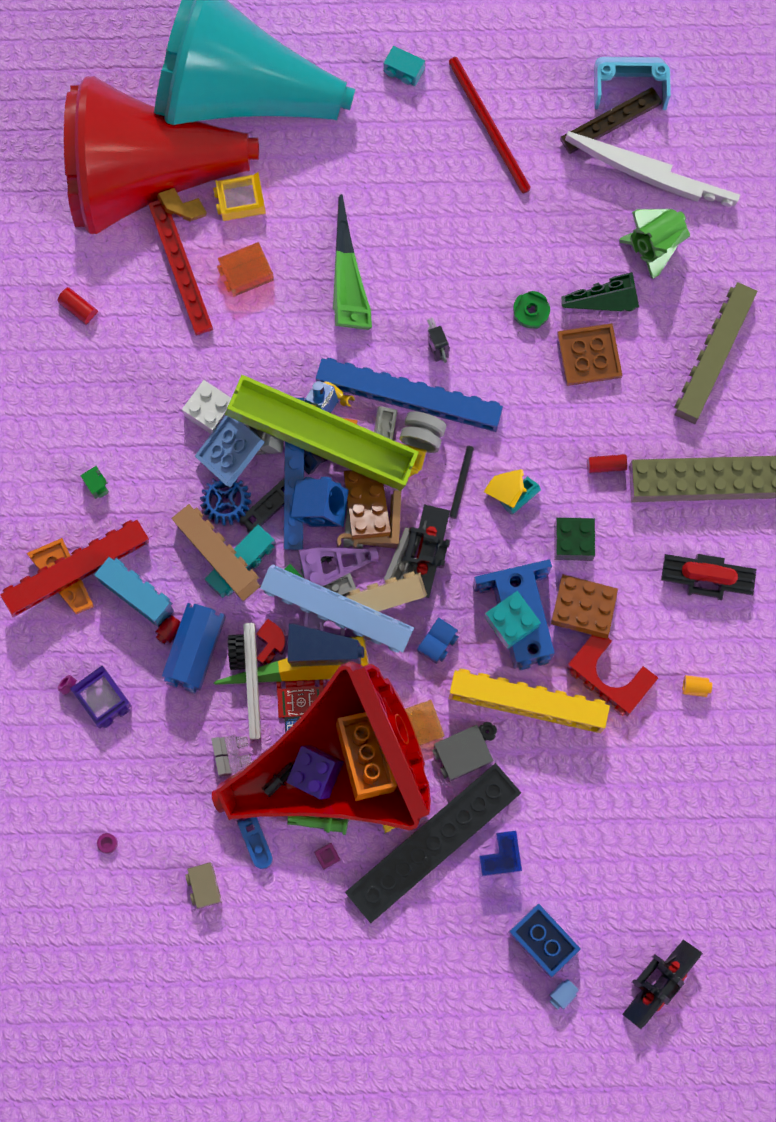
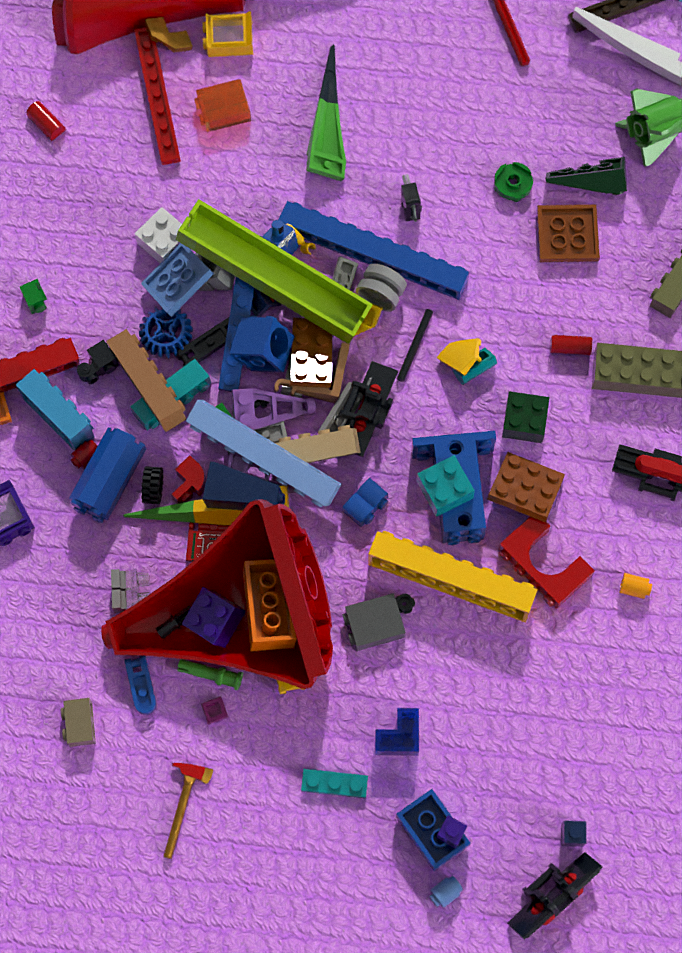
camera: 10 degrees right, 5 degrees down
(170, 537) = (102, 363): none -> black brick
(252, 681) = (163, 517): white axle -> none
(314, 918) = (191, 773): none -> pearl gold piece
(425, 722) = (339, 585): clear yellow plate -> none
(433, 843) = (328, 711): black plate -> none
(447, 908) = (334, 783): none -> teal plate
(563, 942) = (451, 831): none -> dark purple brick
(671, 924) = (573, 833): none -> dark blue brick

